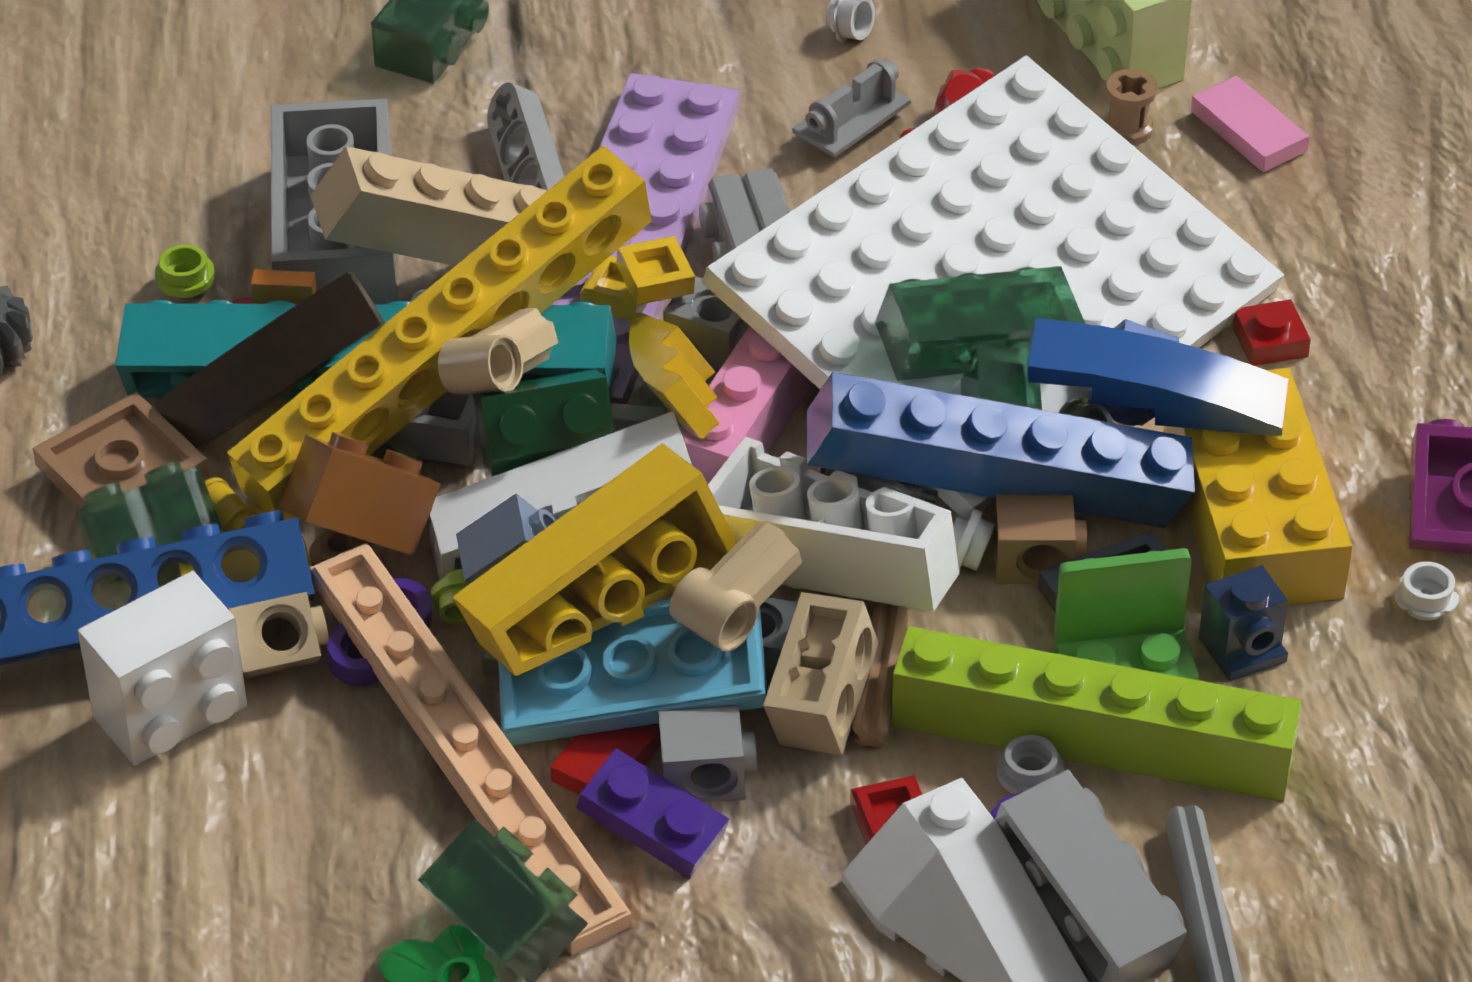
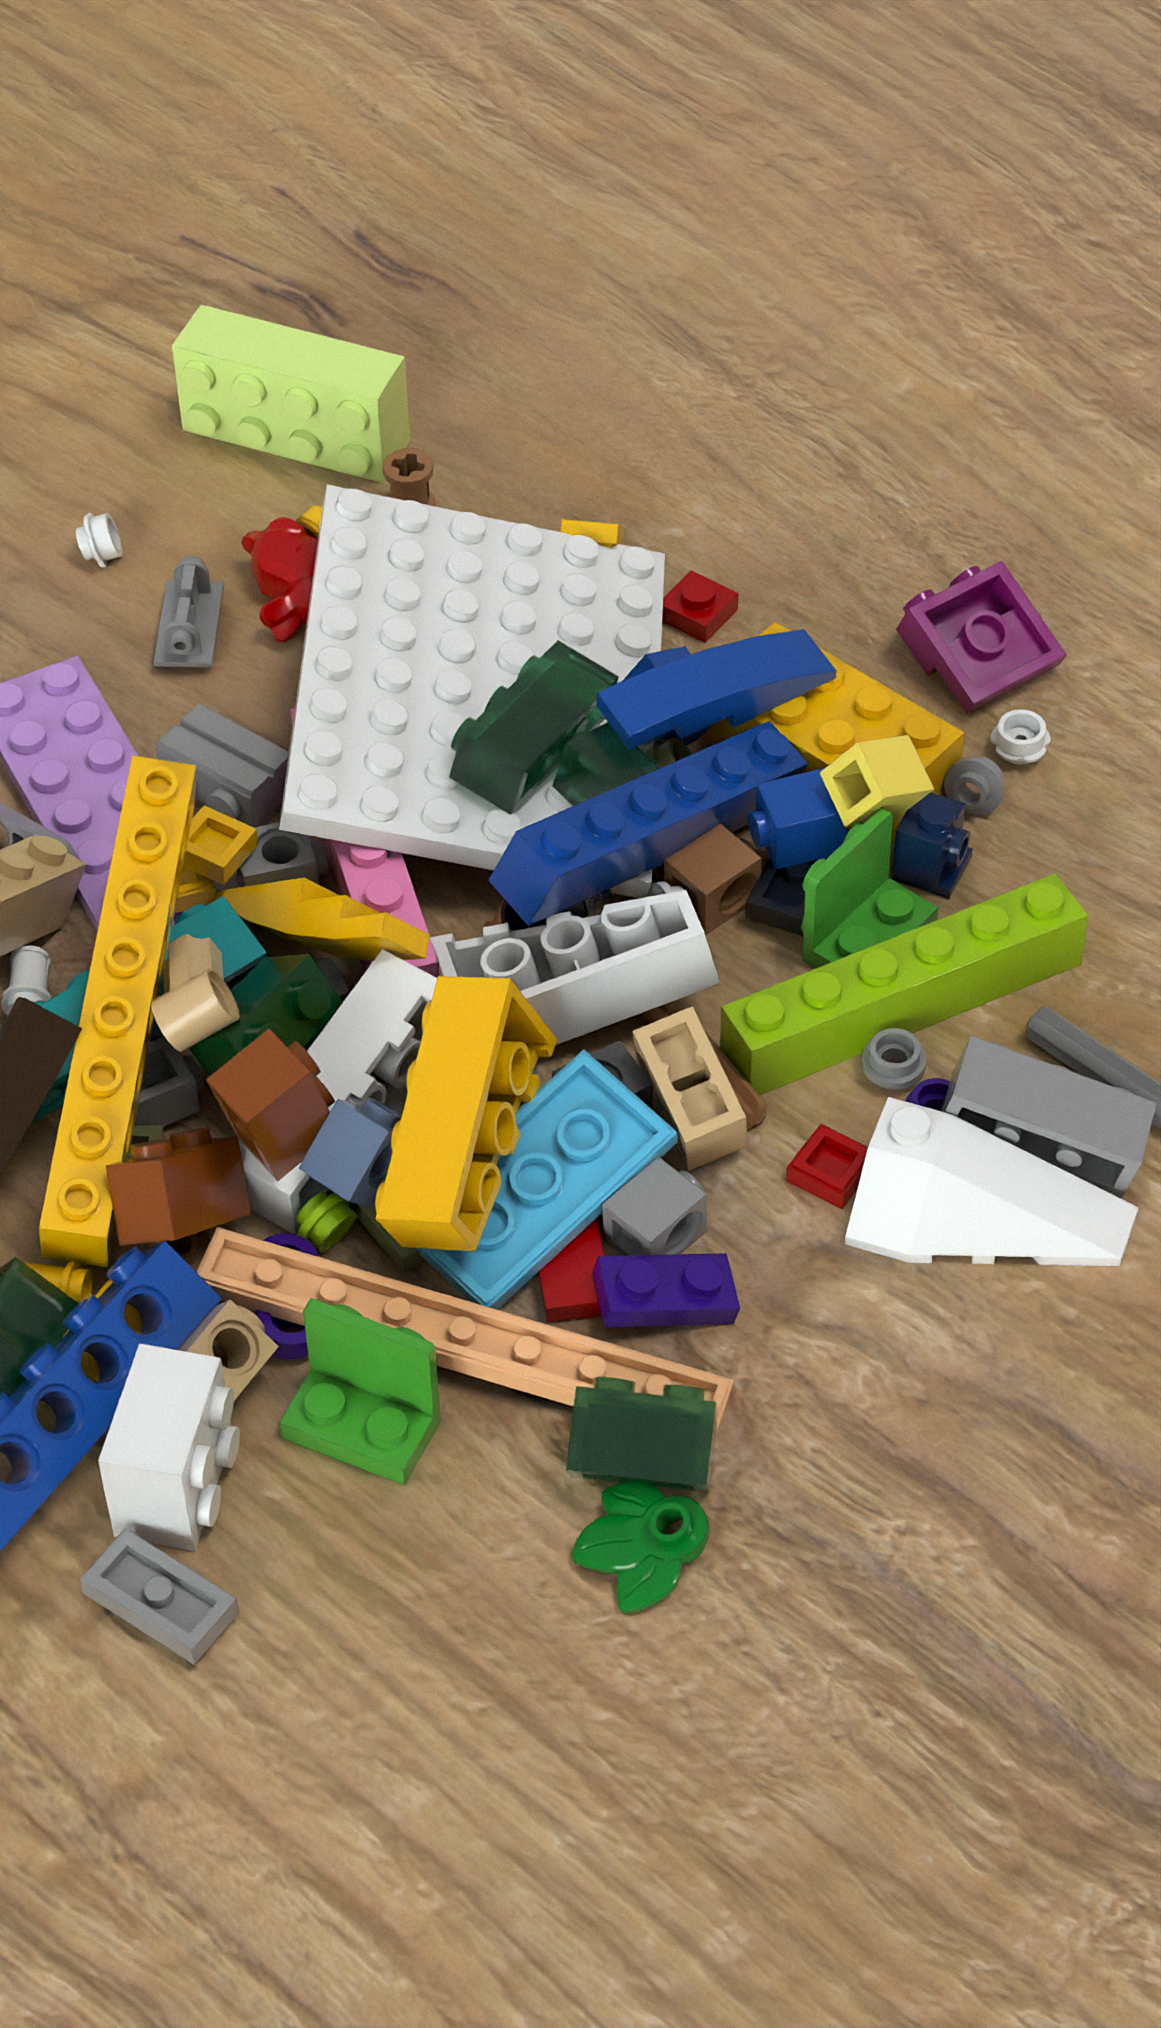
camera: 40 degrees left, 5 degrees up
(66, 773) = (159, 1596): none -> light grey plate
(346, 739) = (366, 1392): none -> bright green bracket
(461, 461) = (273, 1101): none -> dark orange brick
(726, 600) = (587, 1071): tan piece -> none
(1136, 519) = (796, 820): none -> blue brick
(1211, 523) = (876, 776): none -> light yellow brick
(1239, 226) = (602, 533): none -> yellow tile
(1250, 123) = (505, 447): bright pink tile -> none
(1340, 602) = (981, 773): none -> light grey plate

